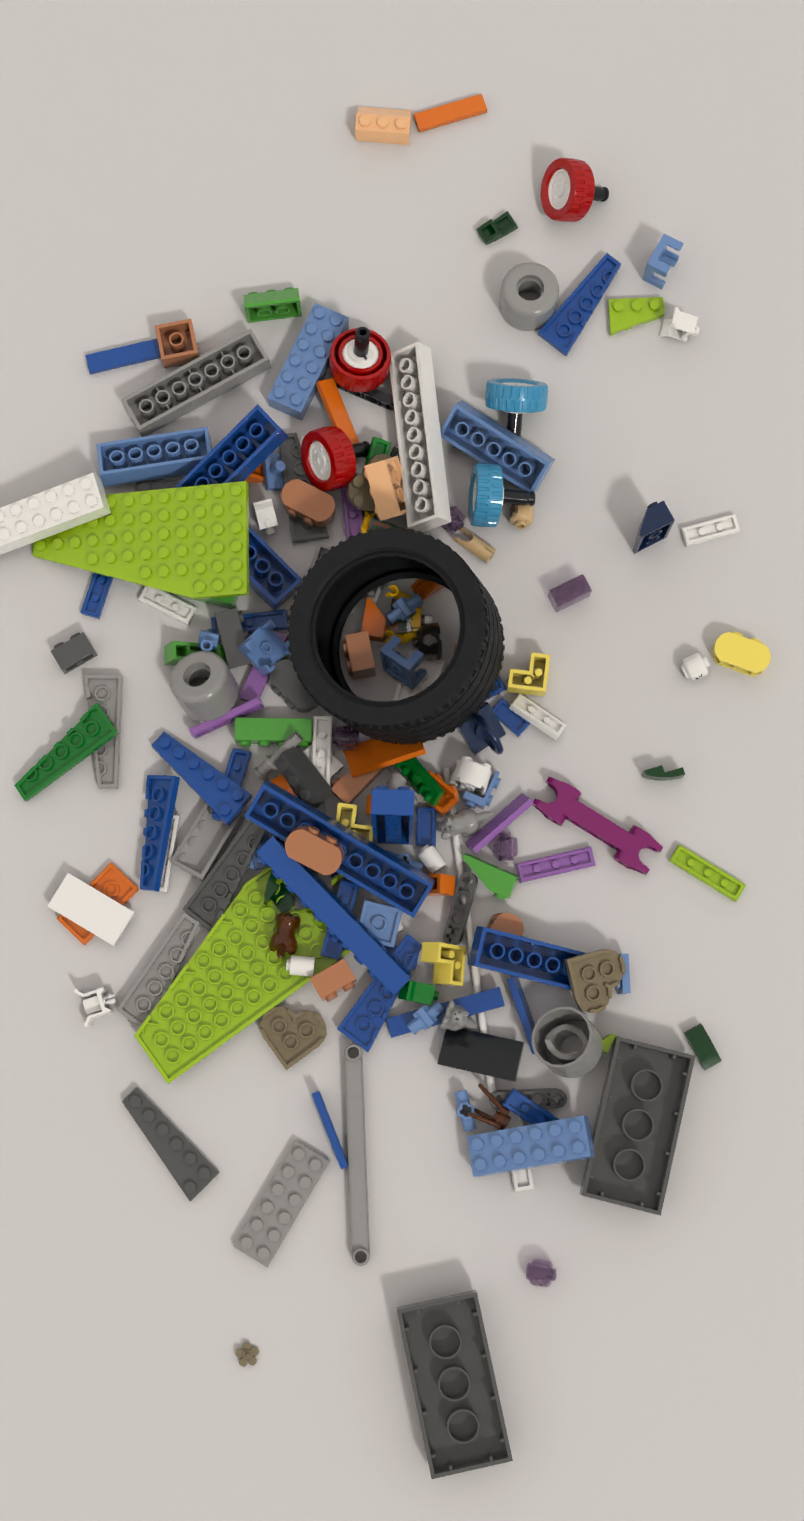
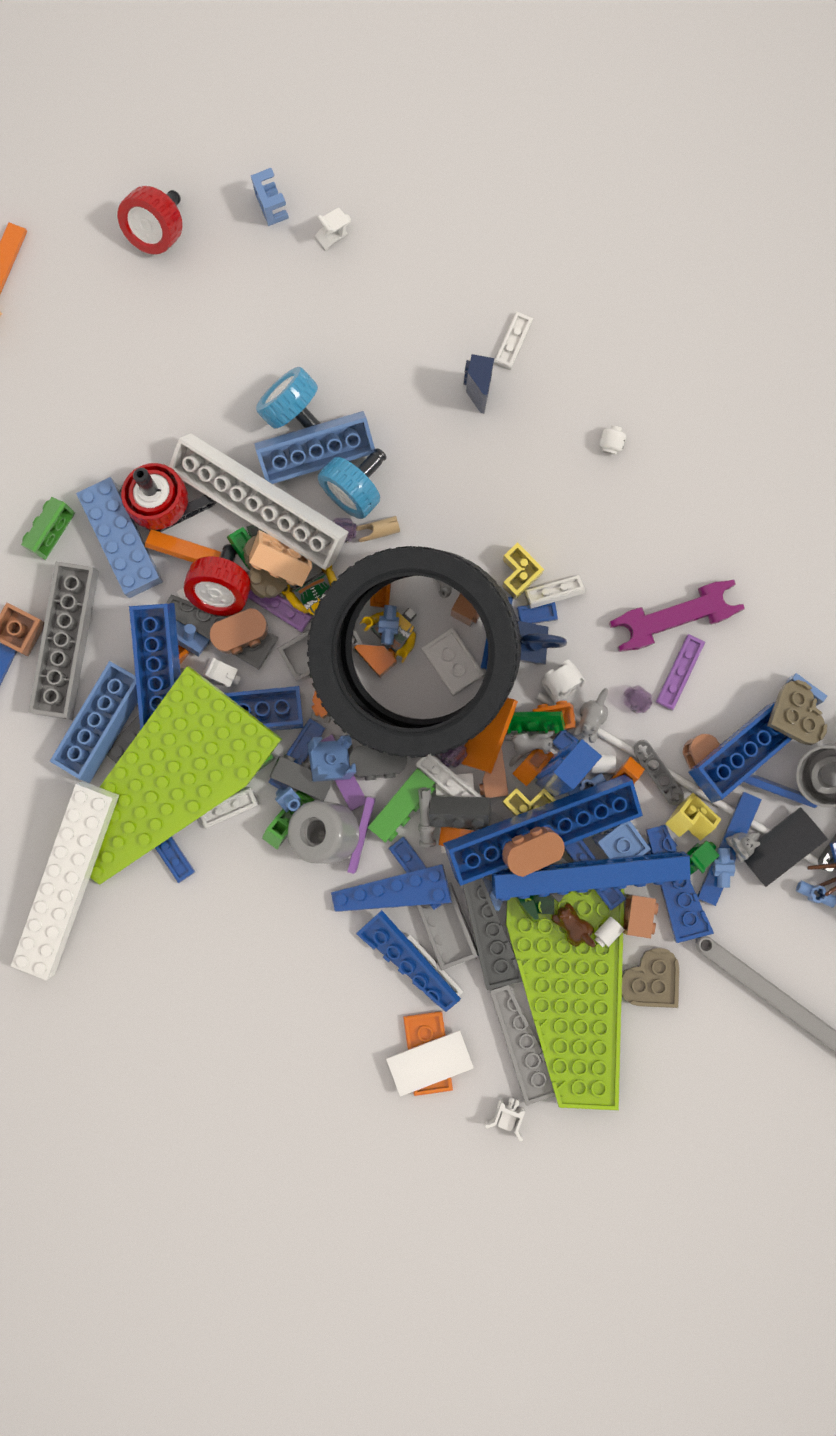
camera: 50 degrees left, 5 degrees up
(73, 652) = (208, 914): dark grey brick -> none
(79, 743) = (287, 970): green wing -> none
(108, 693) = (277, 927): light grey wing -> none
(178, 1154) = (674, 1143): dark grey wing -> none
(281, 1203) = (776, 1092): light grey plate -> none
(330, 1129) = (750, 1010): blue tile -> none
(360, 655) = (396, 689): nougat brick -> none
(399, 667) = (432, 667): medium blue panel -> none
(428, 641) = (429, 628): clear smoke cylinder -> none
(473, 801) = (581, 695): medium blue bracket -> none
(494, 877) = (657, 726): bright green slope -> none
(497, 229) = (132, 301): dark green slope -> none
(499, 823) = (615, 687): medium lavender tile -> none
(521, 516) = (385, 475): tan head -> none
(523, 313) = (213, 341): light grey piece -> none
(569, 593) = (477, 487): clear purple brick -> none
(571, 317) = (254, 303): blue wing -> none
(629, 312) = (288, 256): lime wing -> none
(658, 773) = (673, 535): dark green slope -> none
(707, 873) = (777, 563): lime tile -> none
(741, 653) = (630, 397): light yellow brick -> none

